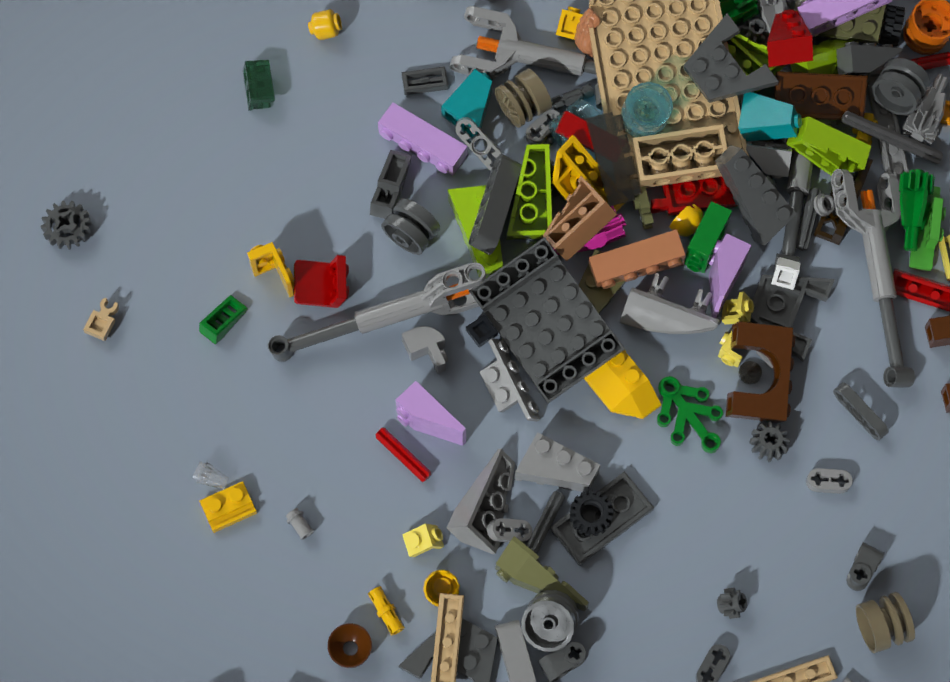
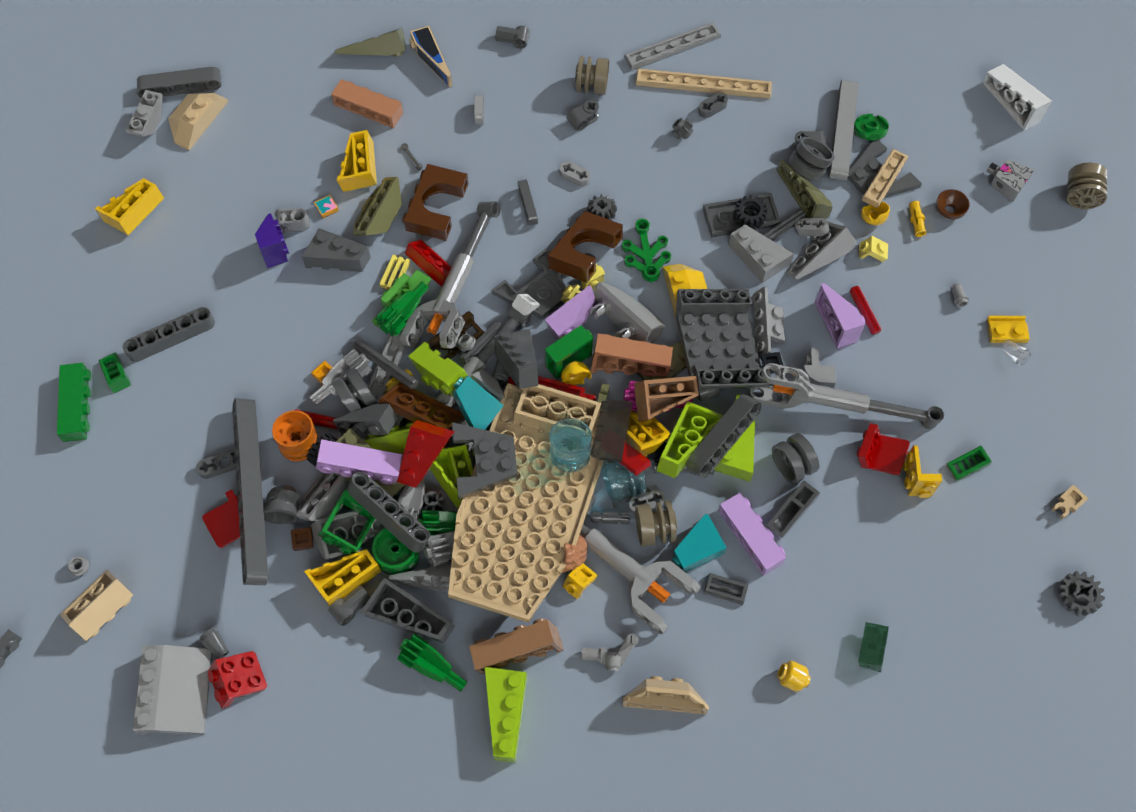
camera: 155 degrees left, 5 degrees down
(473, 128) = (714, 509): light grey beam -> none

